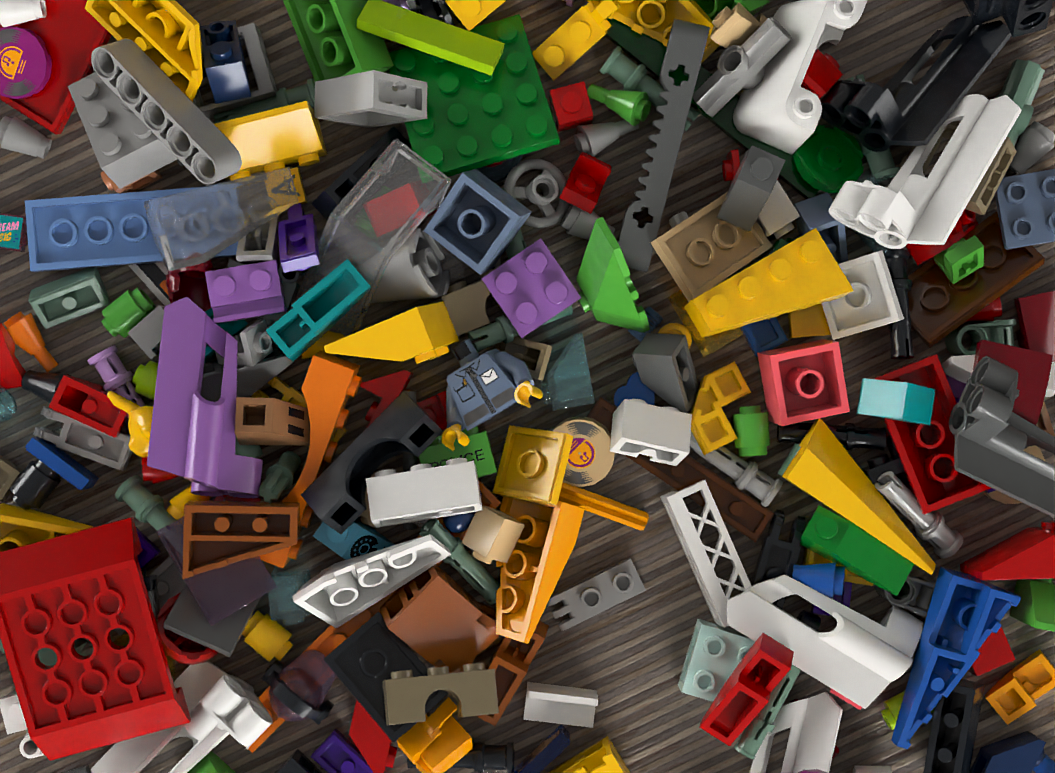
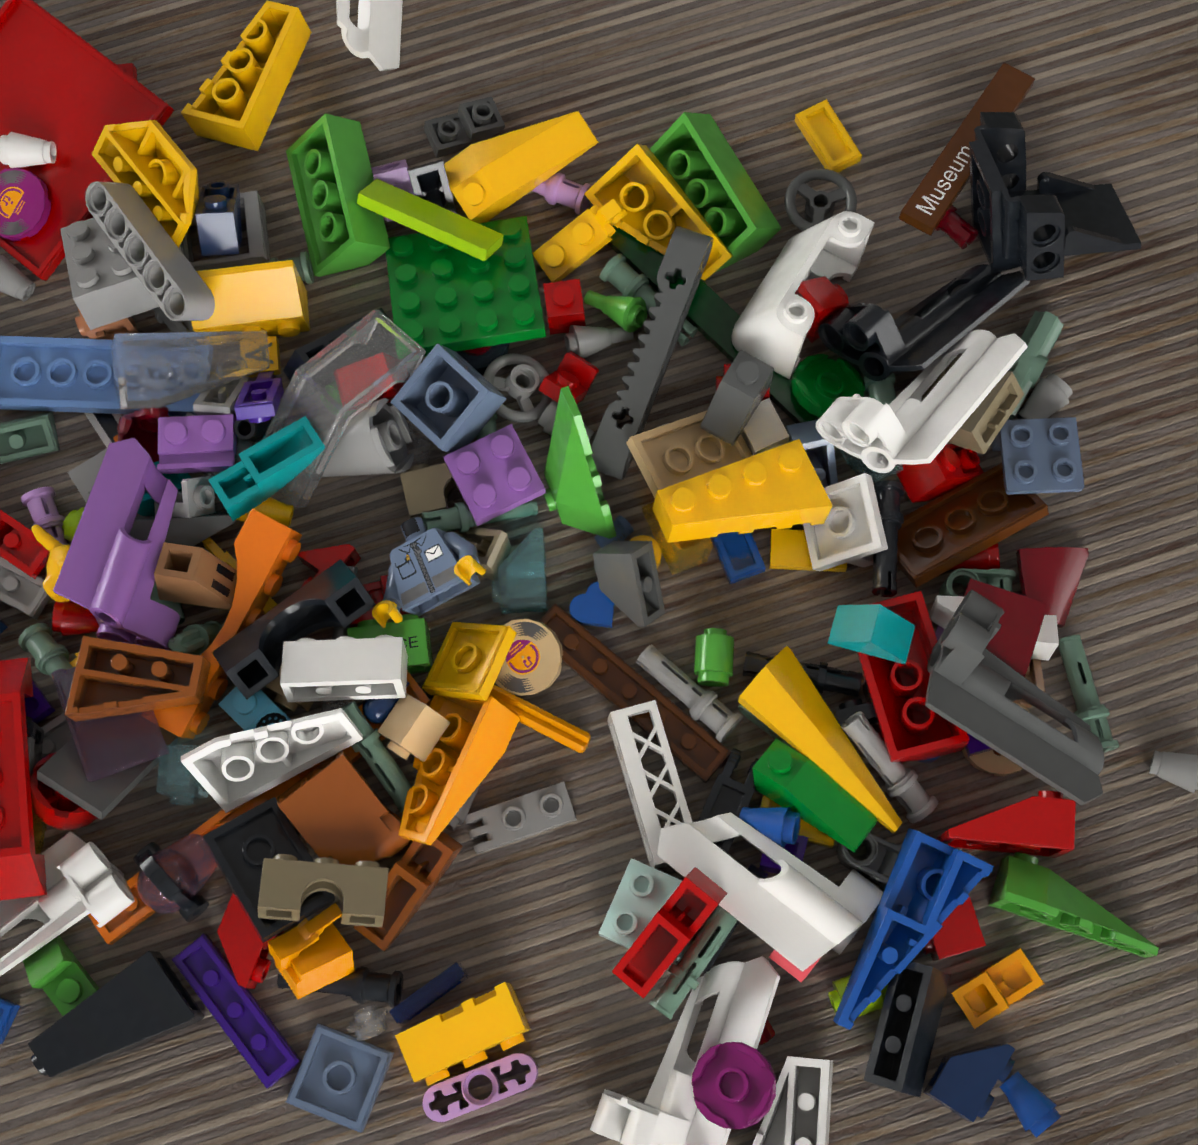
camera: 10 degrees right, 15 degrees down
(127, 312) = (70, 455): bright green brick -> none
(267, 637) = (149, 815): yellow brick -> none
(370, 99) = (353, 271): light grey window -> none
(415, 334) = (352, 499): yellow slope -> none
(560, 704) = (461, 937): white panel -> none
(651, 431) = (602, 639): white brick -> none
(708, 418) = (667, 636): yellow tile -> none
(735, 25) = (744, 246): tan slope -> none
(741, 66) = (742, 280): light grey piece -> none
(803, 382) = (775, 608): coral brick -> none
(961, 259) = (957, 495): bright green bracket -> none

